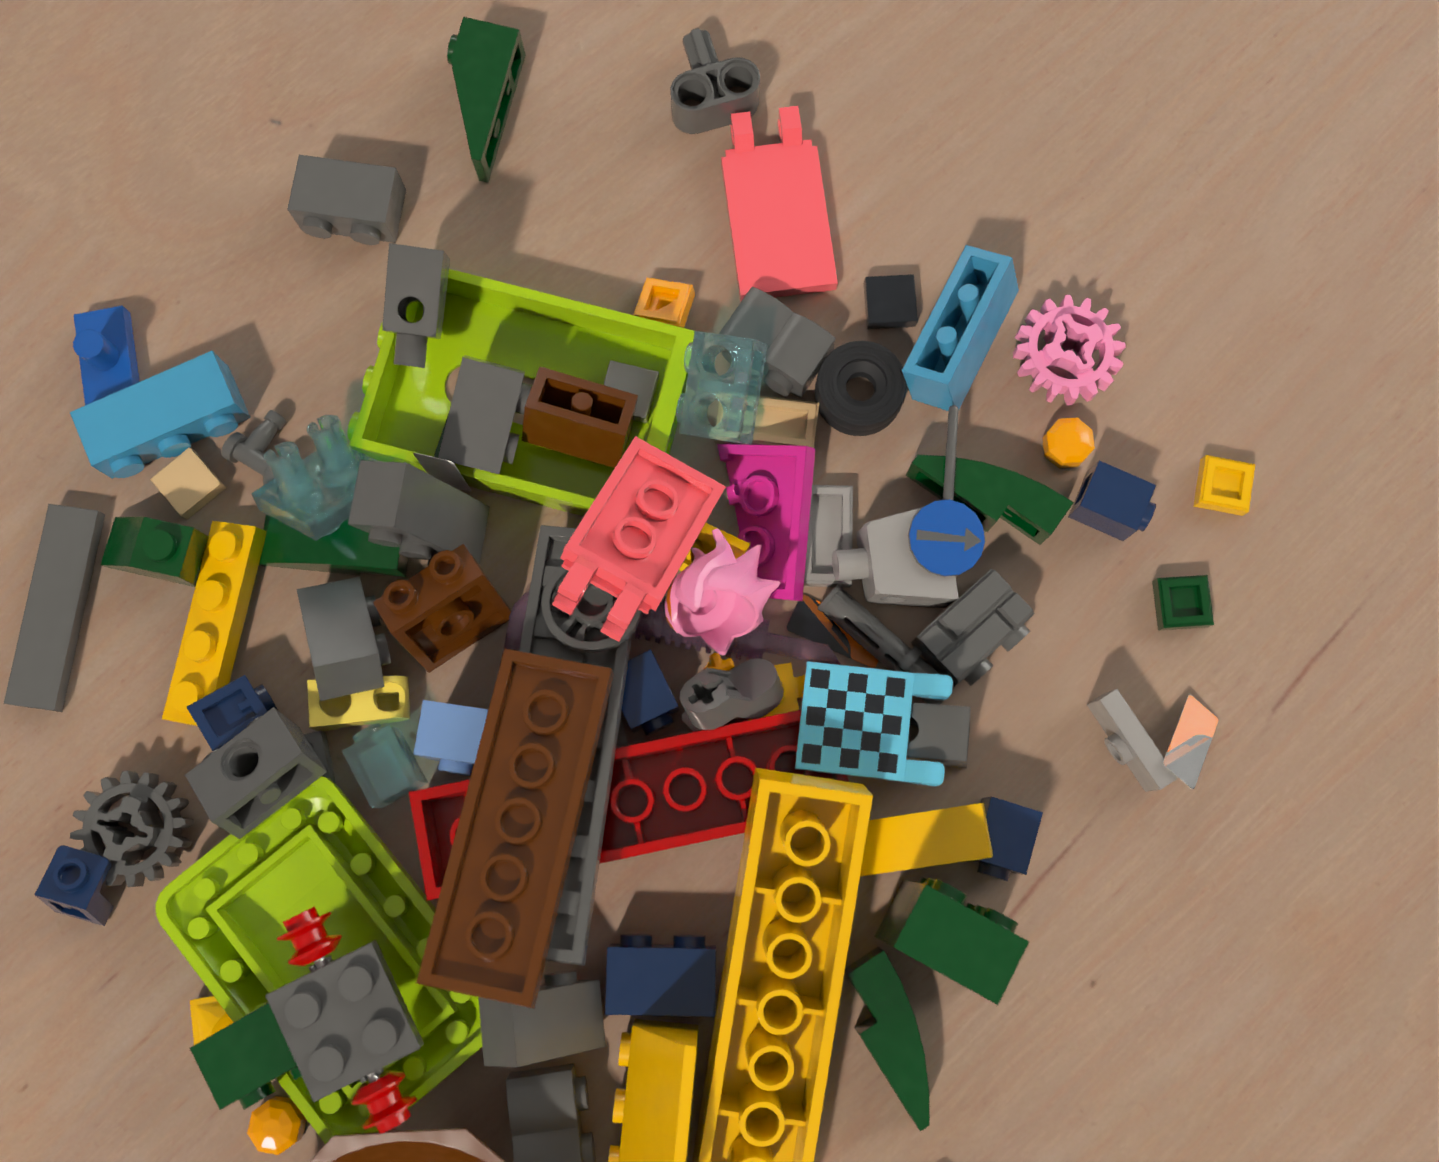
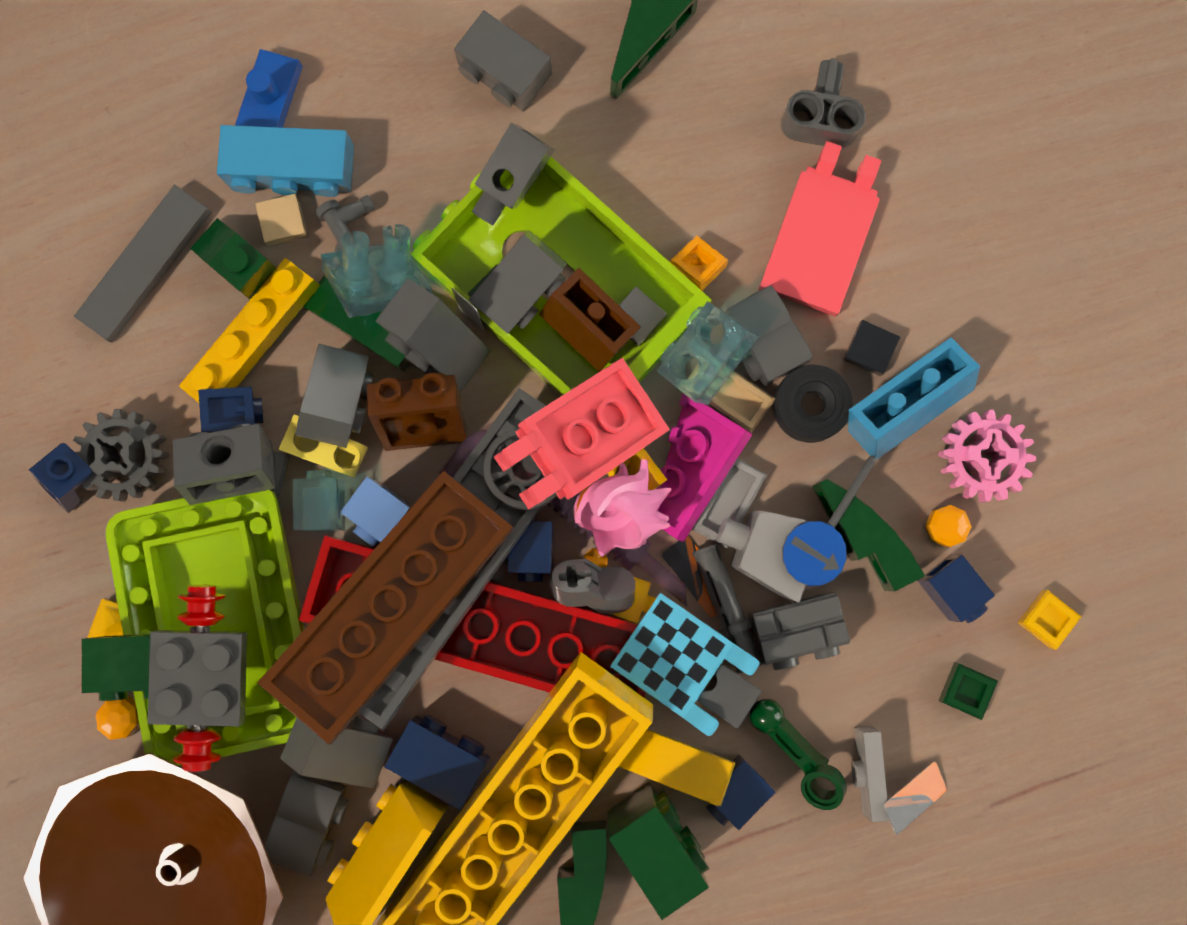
camera: 30 degrees right, 5 degrees up
(992, 741) = (769, 718): none -> dark green piece

